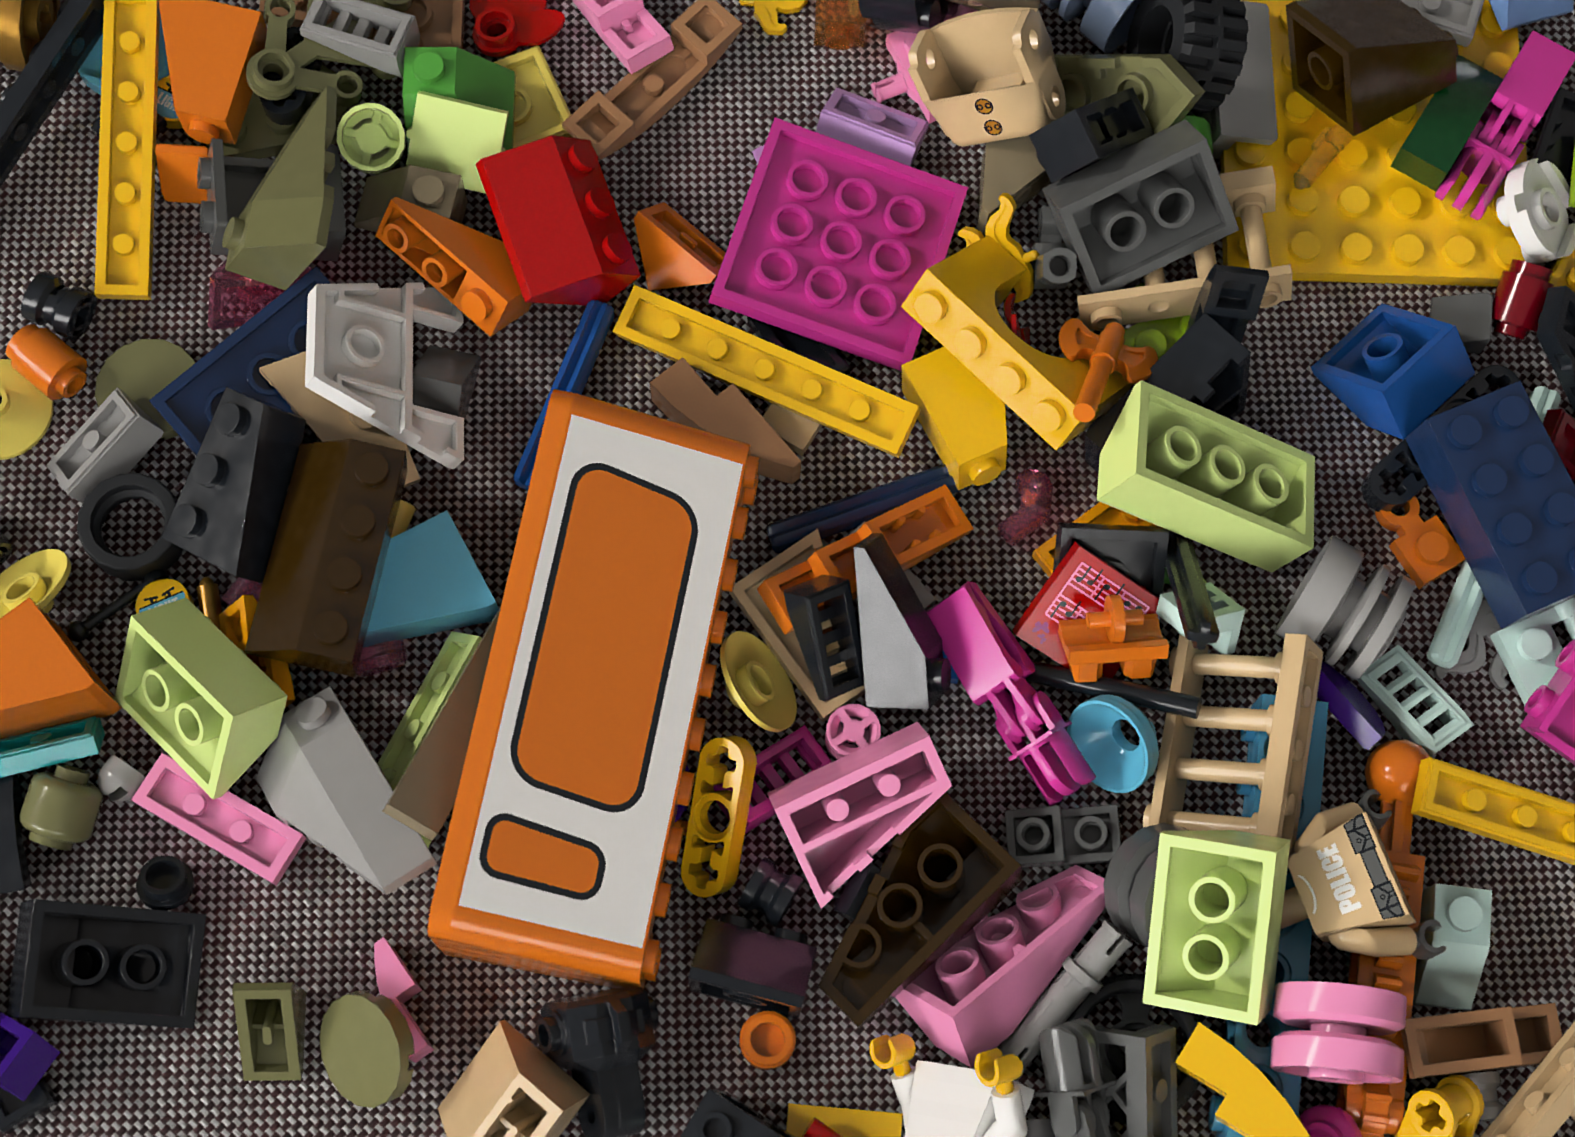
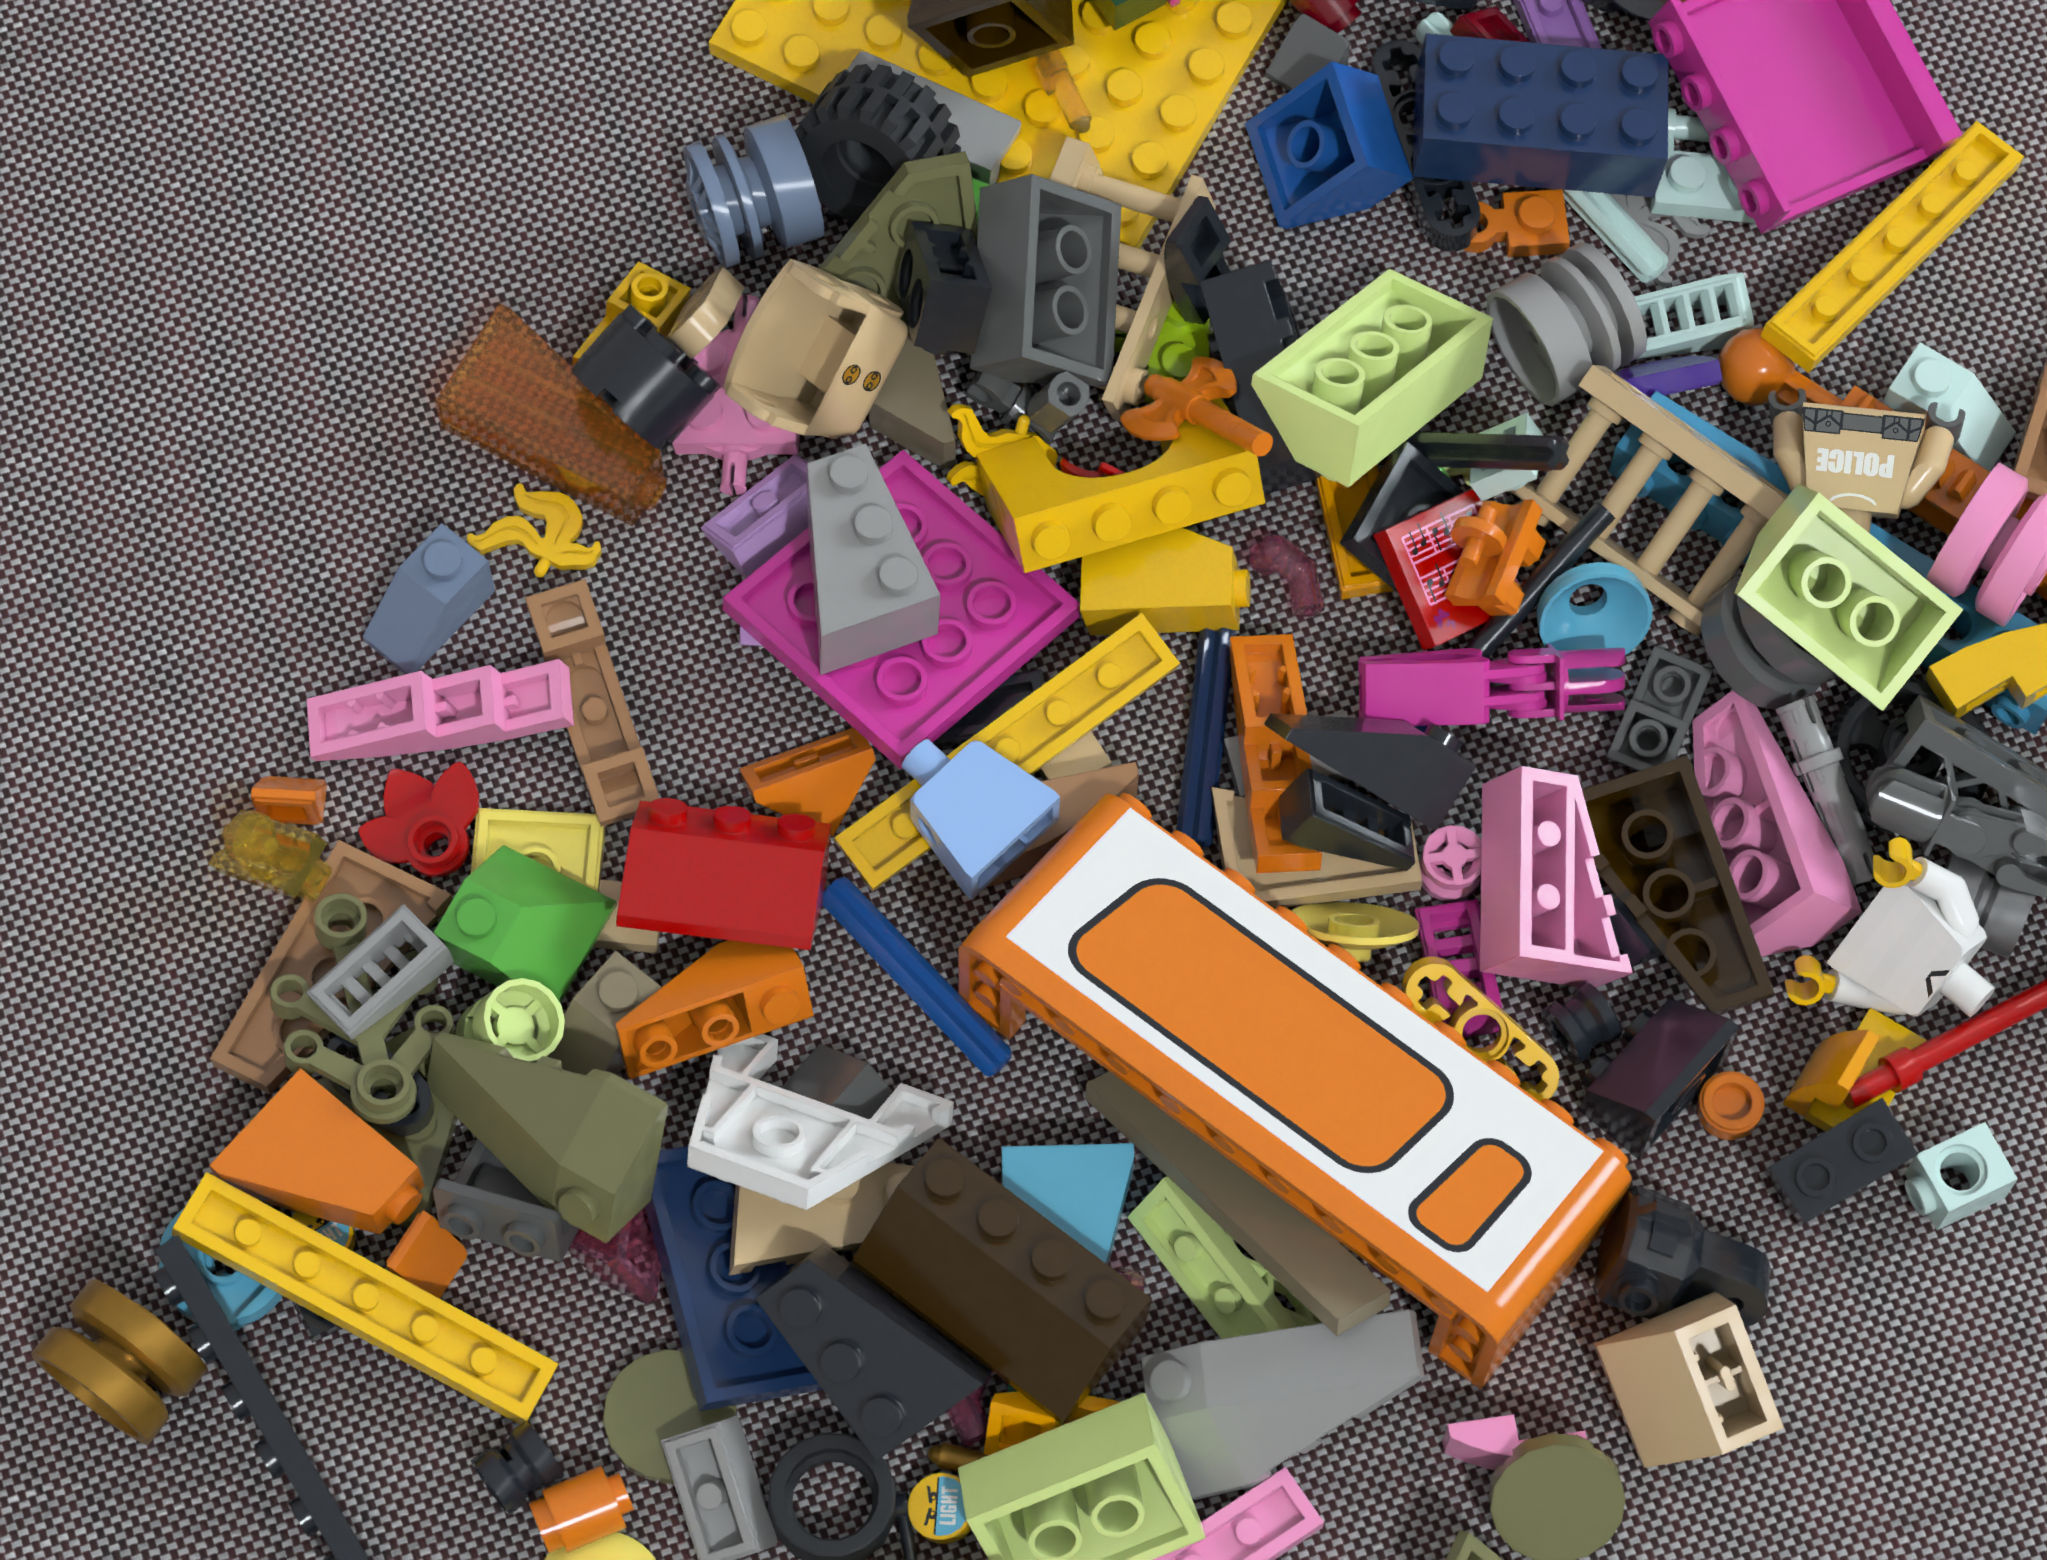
camera: 60 degrees left, 5 degrees down
(454, 136) = (568, 934): yellowish green piece -> none
(690, 362) = (977, 810): none -> light blue torso
(821, 1105) = (1831, 1070): none -> light orange slope
(843, 189) = (864, 564): none -> light grey wedge

